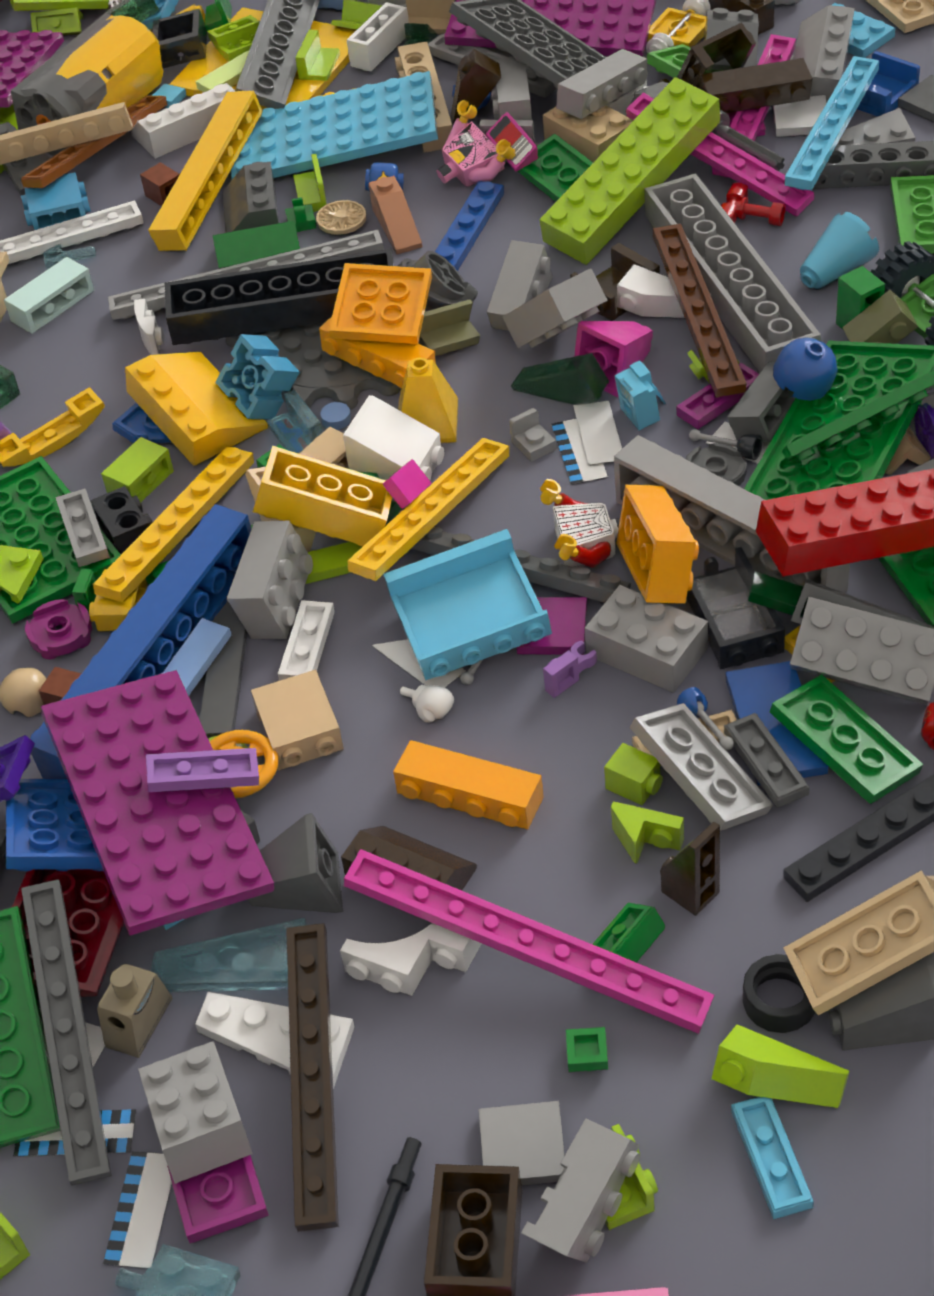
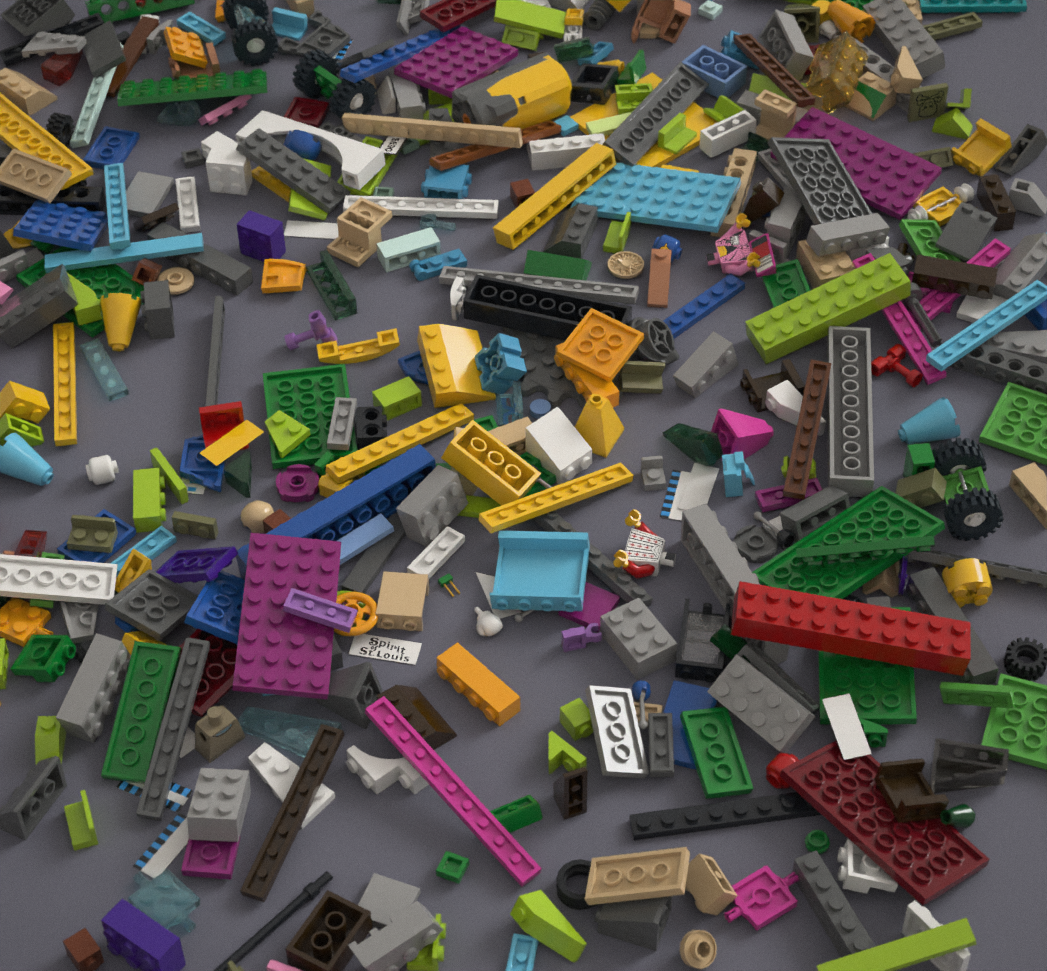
camera: 20 degrees right, 0 degrees up
(95, 301) = (433, 266): none -> dark azure plate
(301, 214) = (599, 254): green tile -> none
(306, 793) = (385, 648): none -> white sticker
(338, 670) = (445, 580): none -> green piece
(407, 483) = (549, 476): dark pink tile -> none
(555, 310) = (712, 393): light grey brick -> none
(656, 544) = (674, 580): light orange brick -> none
(732, 44) = (955, 236): dark brown panel -> none
(806, 368) = (845, 501): blue cylinder -> none

